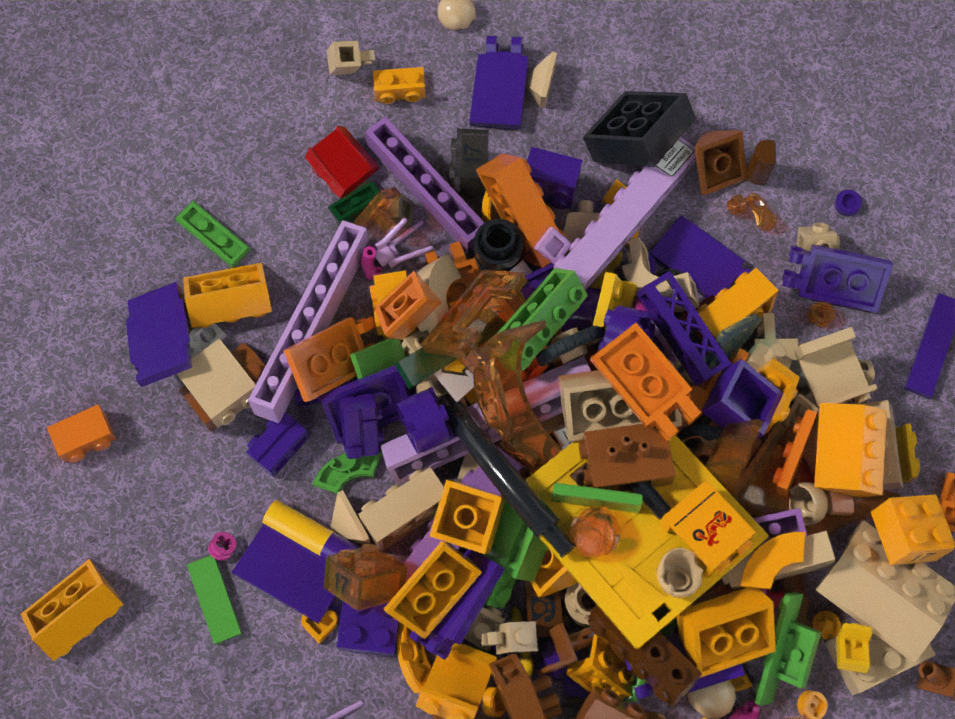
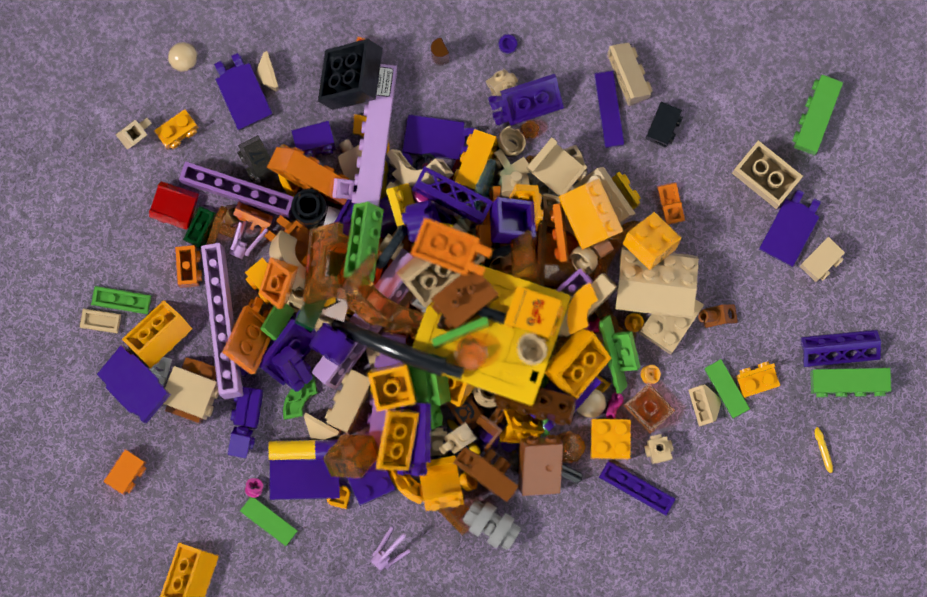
camera: 30 degrees left, 10 degrees up
(173, 244) = (100, 321): none -> tan tile
(241, 479) = (241, 442): none -> dark purple brick
(312, 237) = (187, 266): none -> orange brick
(367, 262) = (233, 264): dark pink arm -> none
(420, 217) = (250, 214): none -> orange plate
(720, 160) = (412, 64): dark orange slope -> none
(764, 217) = (461, 86): clear orange piece -> none
(790, 304) = (509, 147): none -> tan hair
(853, 647) = (654, 330): yellow bracket -> none

